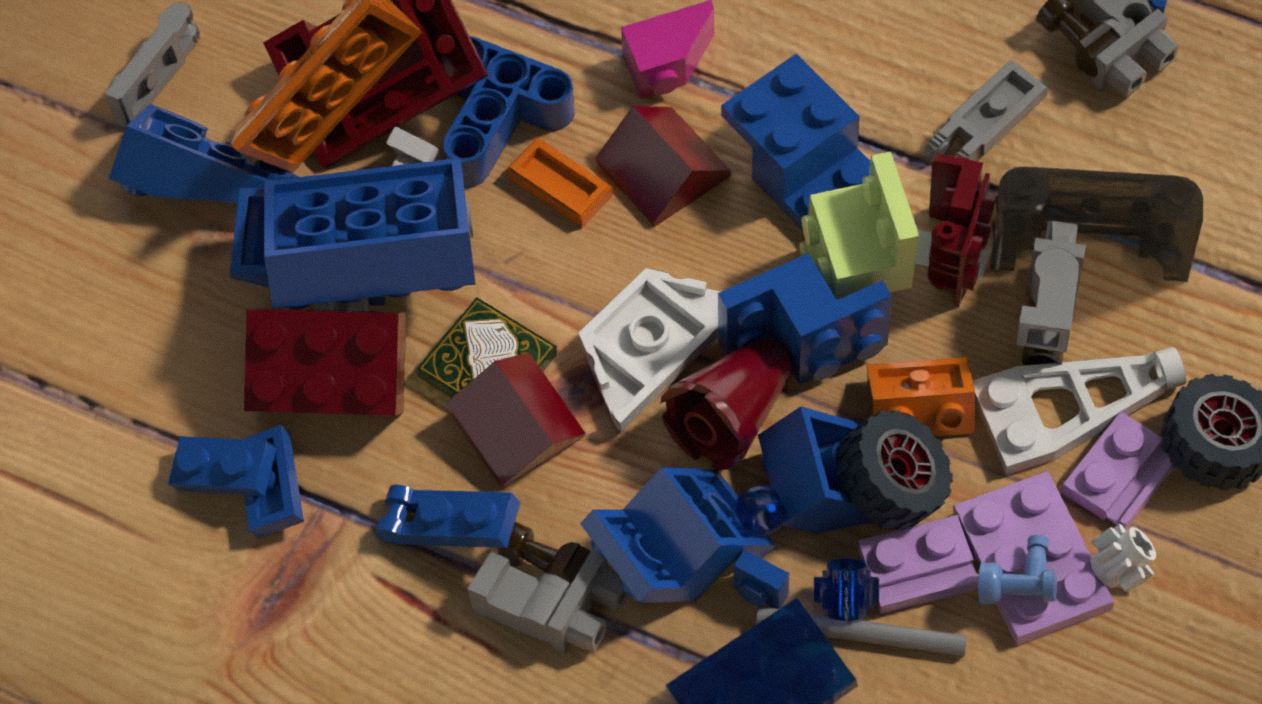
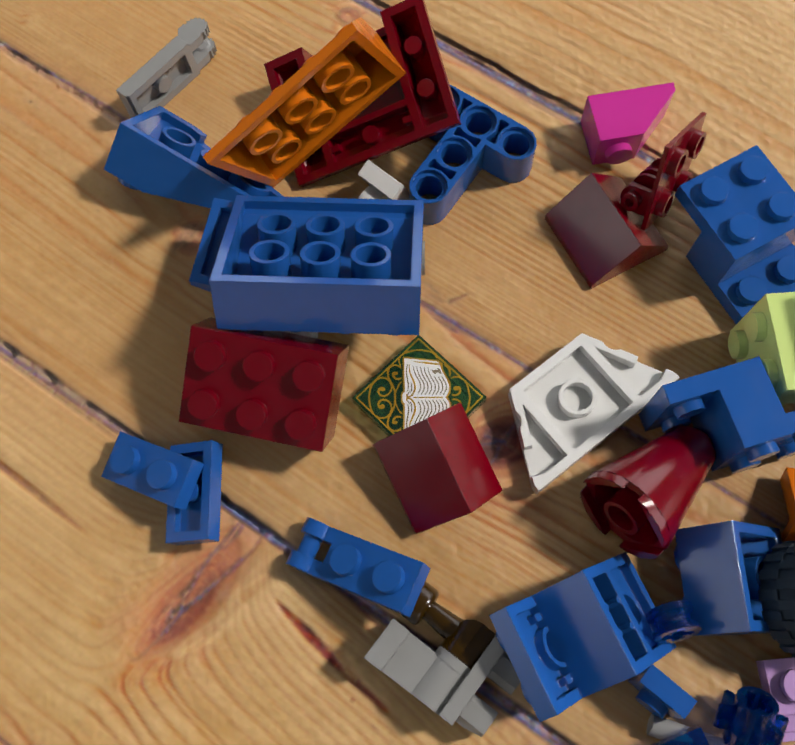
camera: 10 degrees right, 10 degrees up
(559, 182) = (509, 233): orange tile -> none
(713, 83) = (655, 188): none -> dark red hinge

